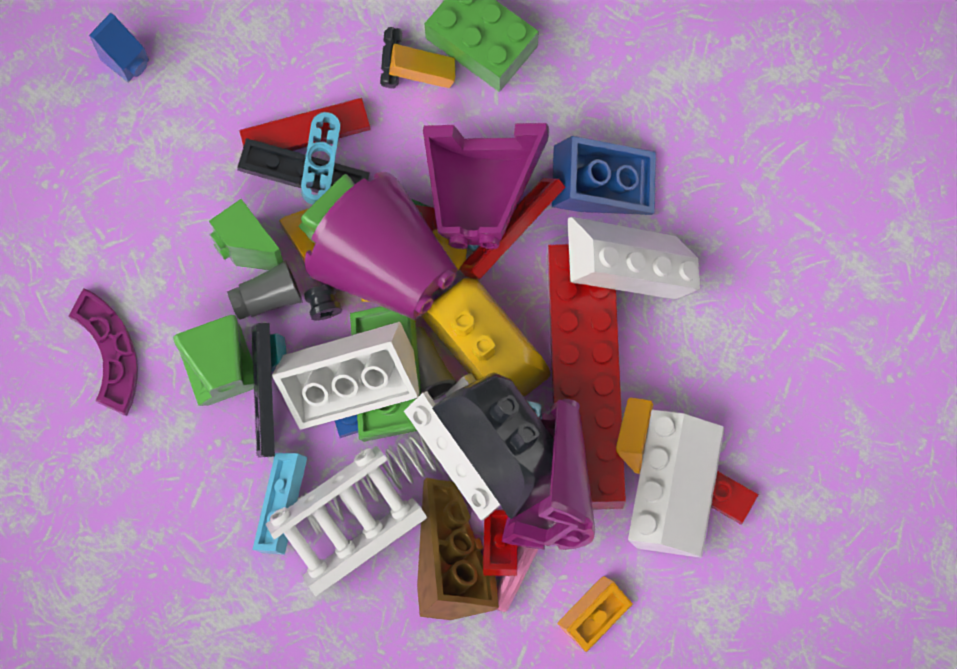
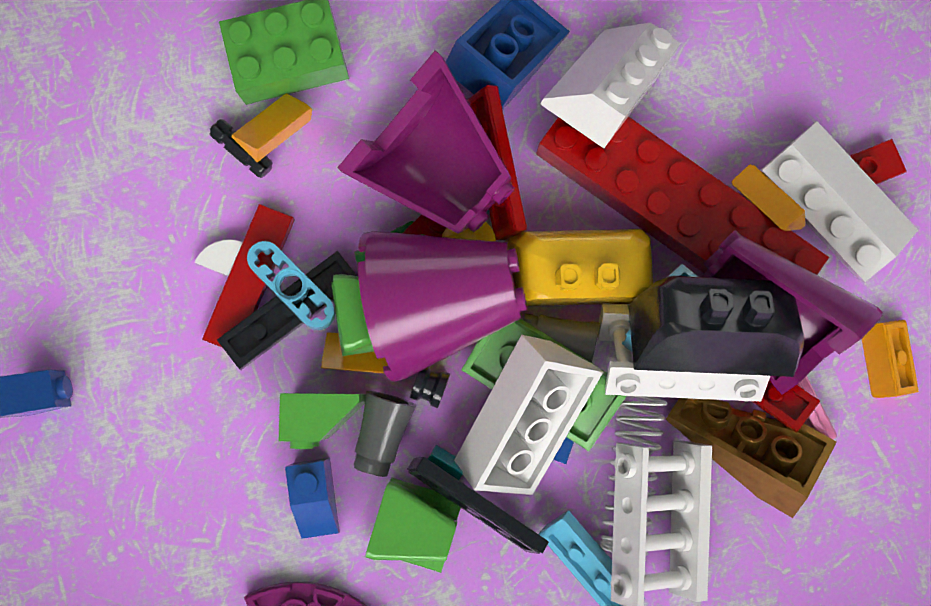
camera: 55 degrees left, 10 degrees up
(186, 281) = (312, 497): none -> blue slope
(305, 99) = (219, 256): none -> white tile

